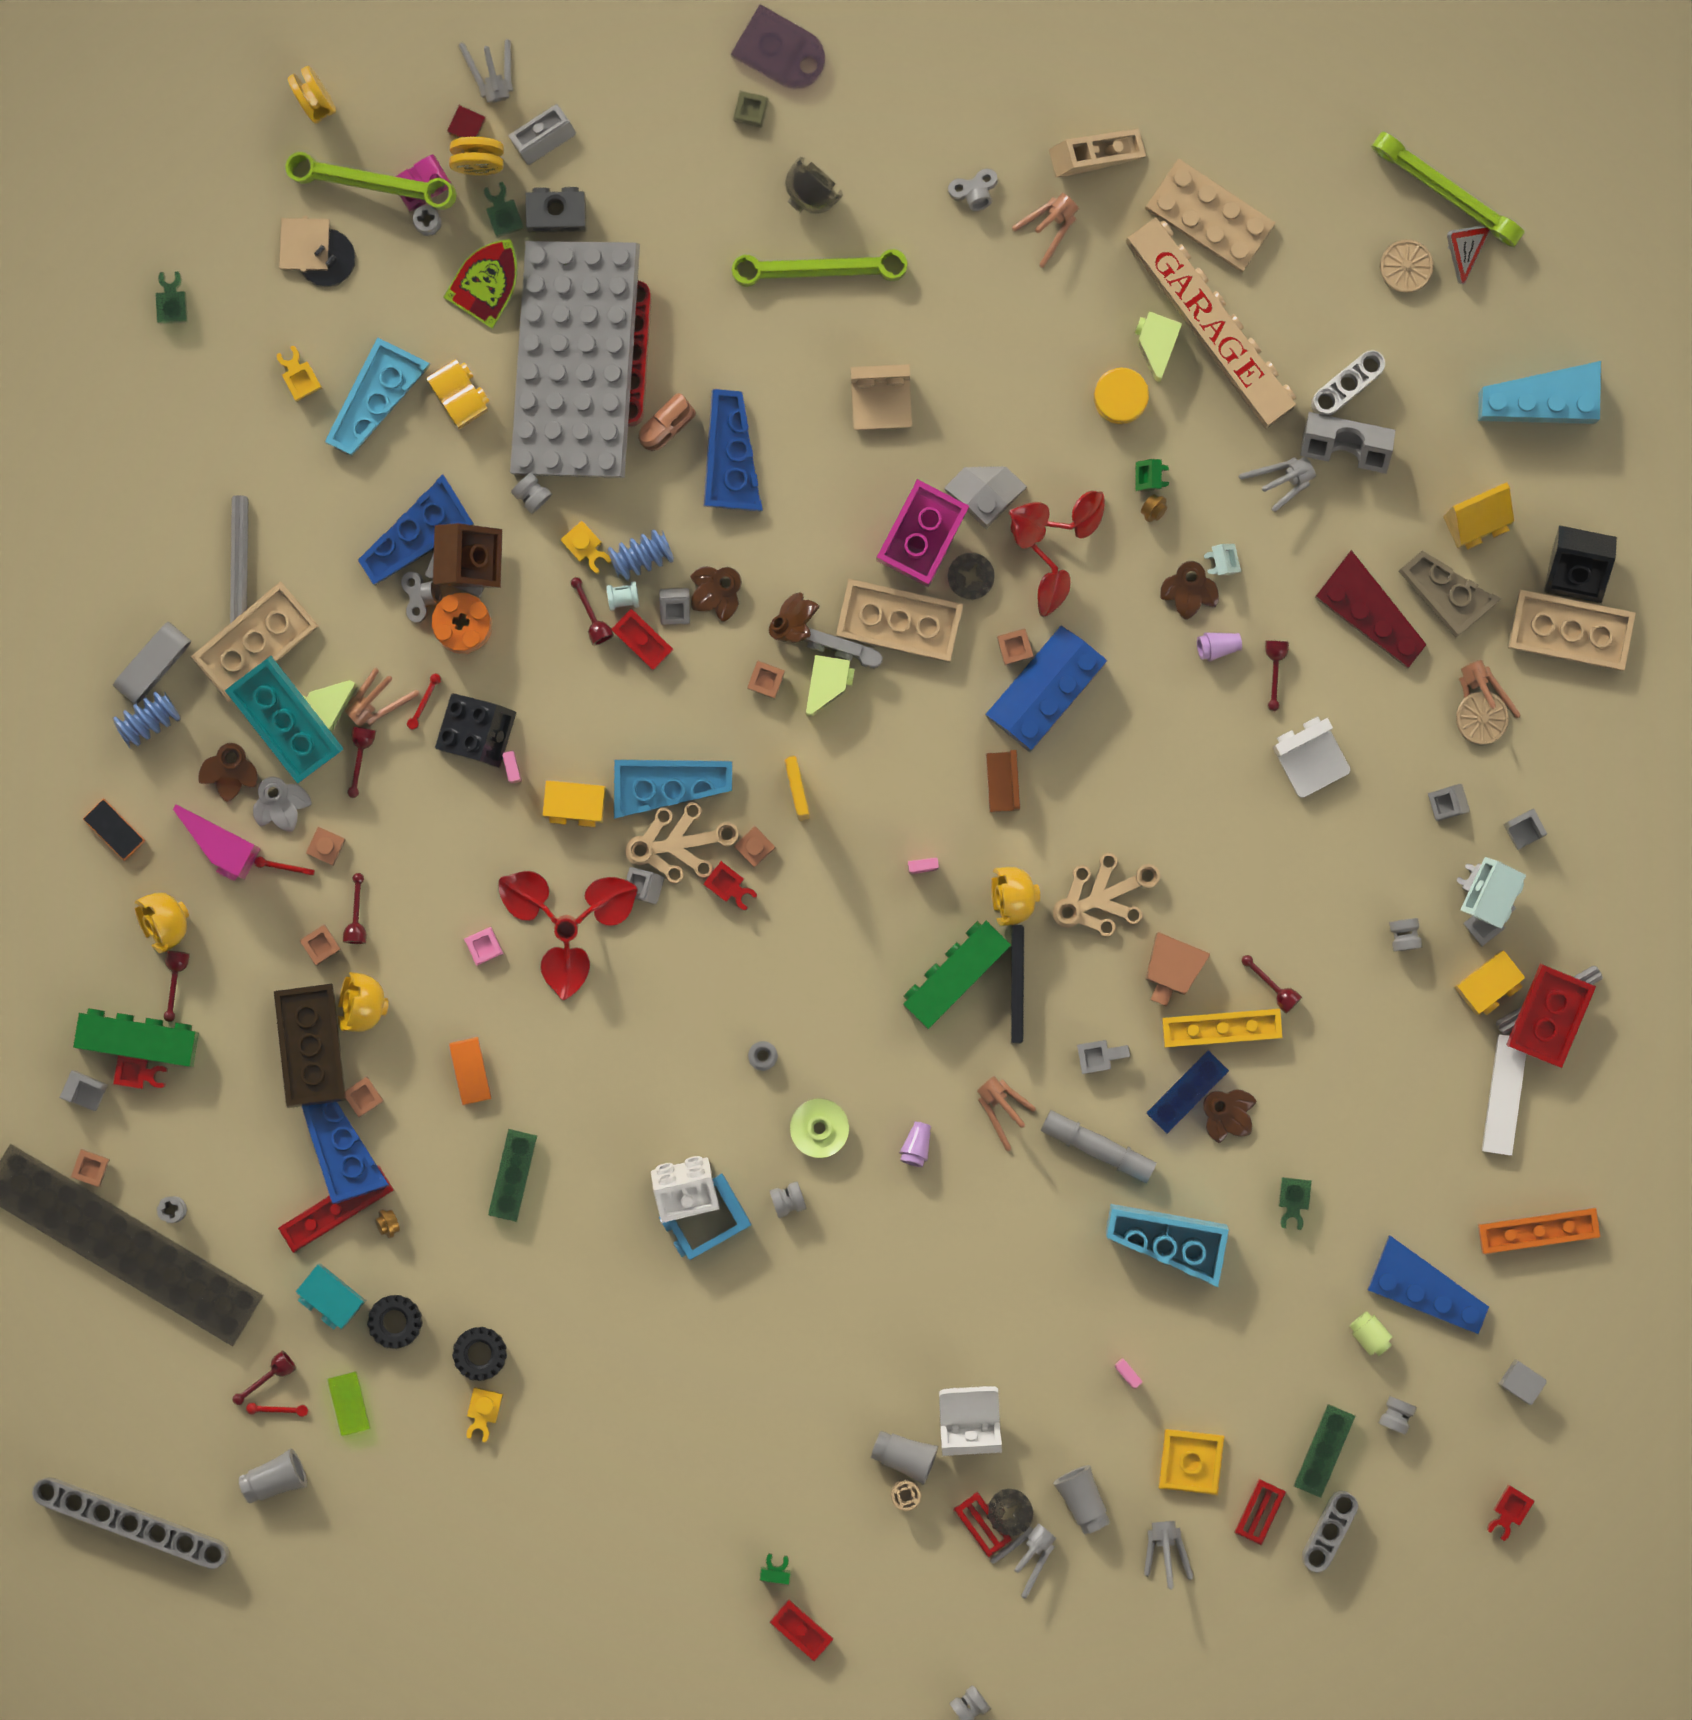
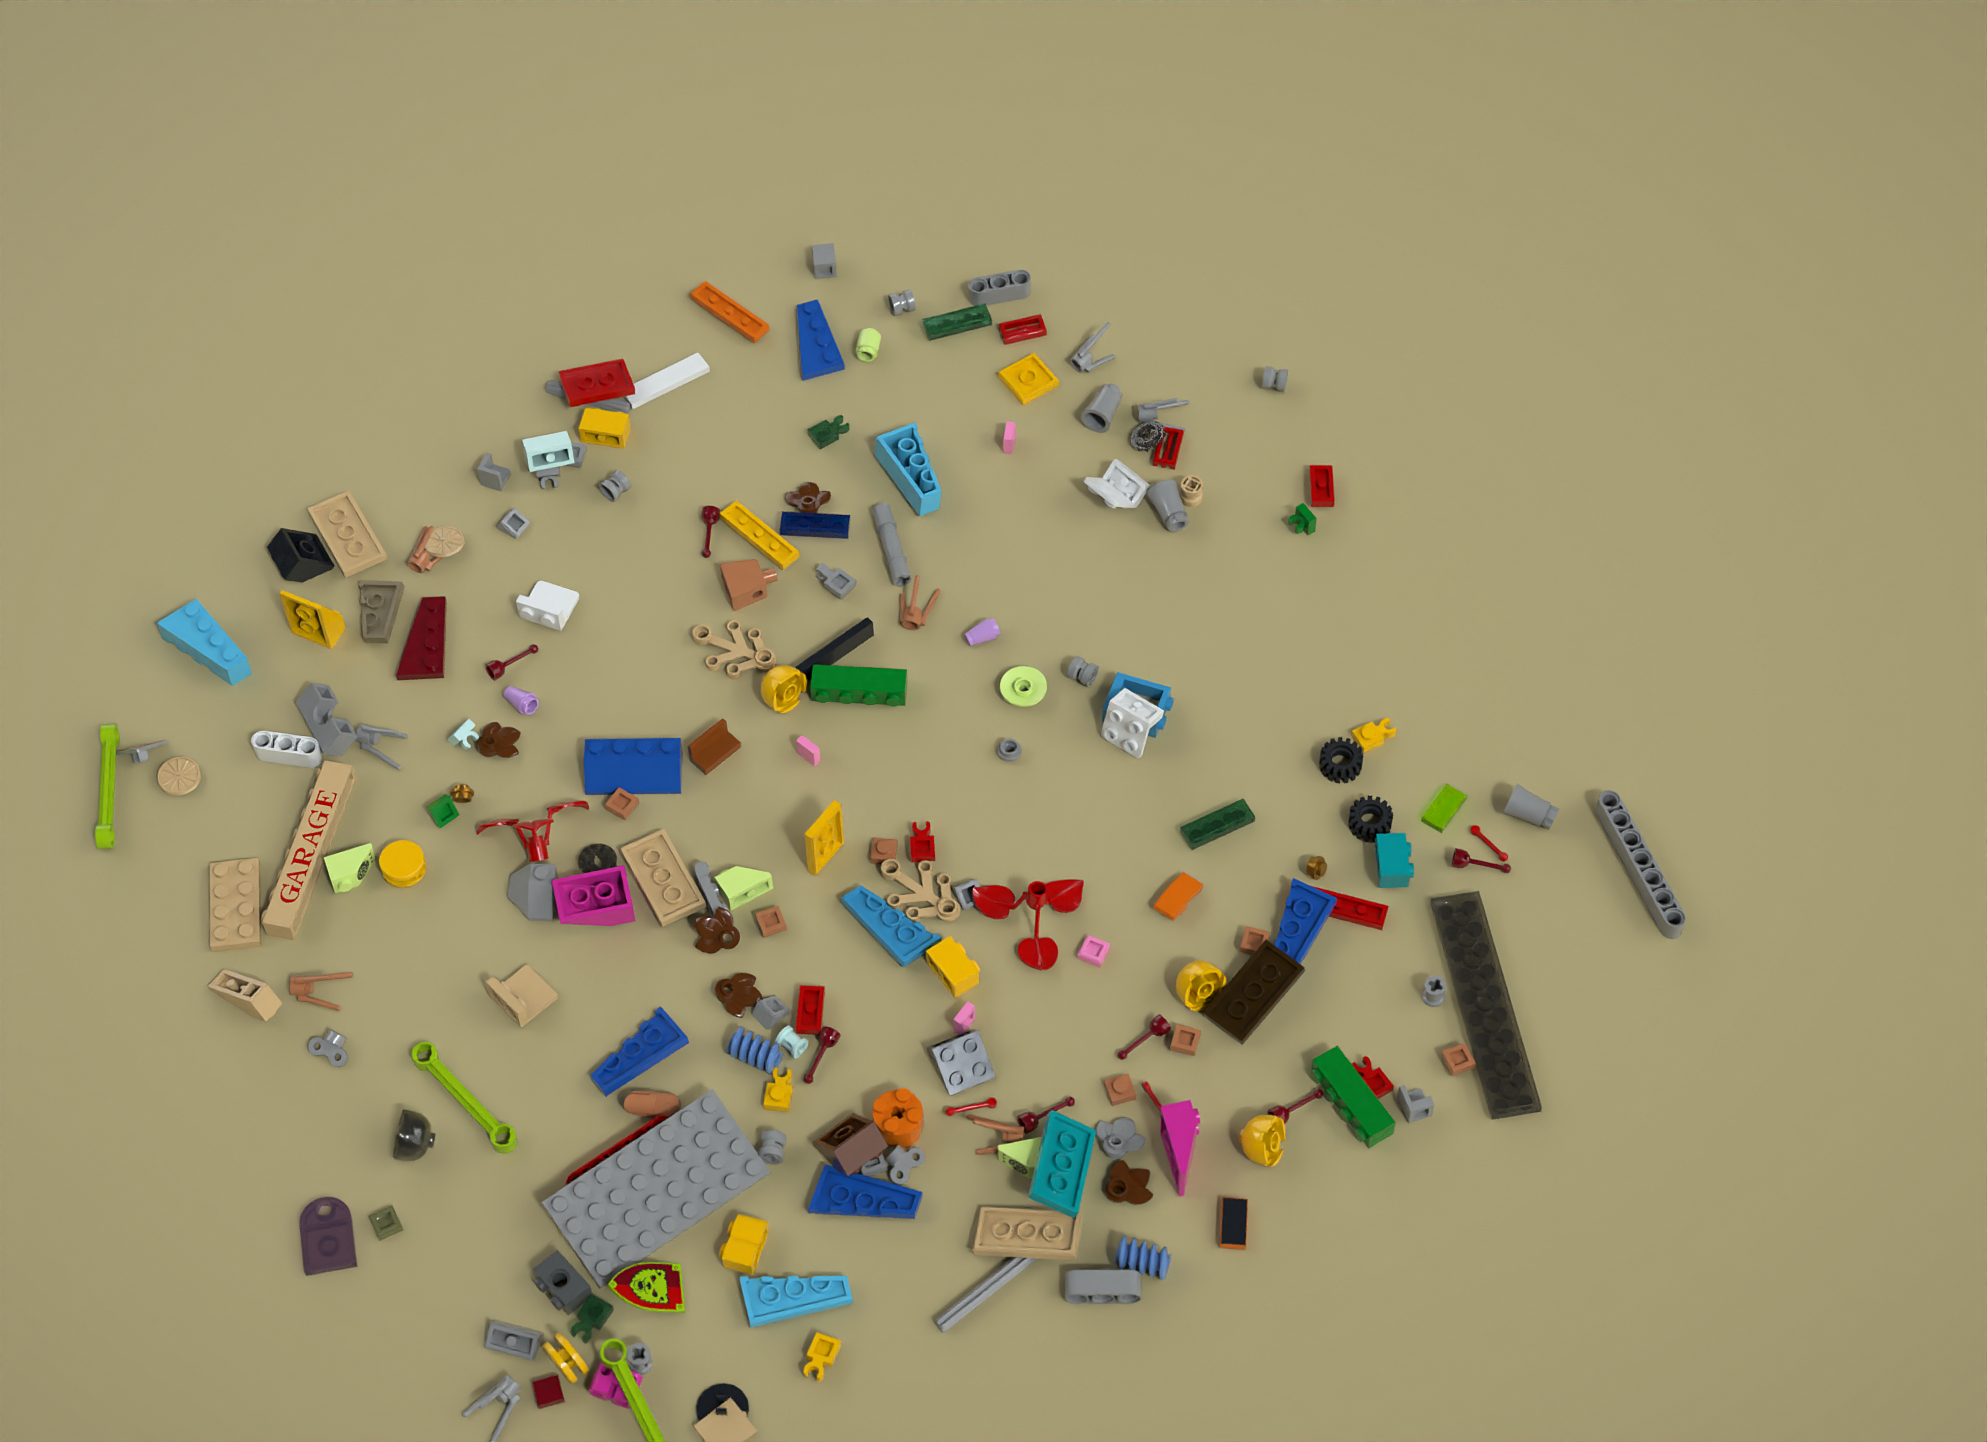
camera: 130 degrees left, 30 degrees down
(1512, 1508) = (901, 221): red plate -> none

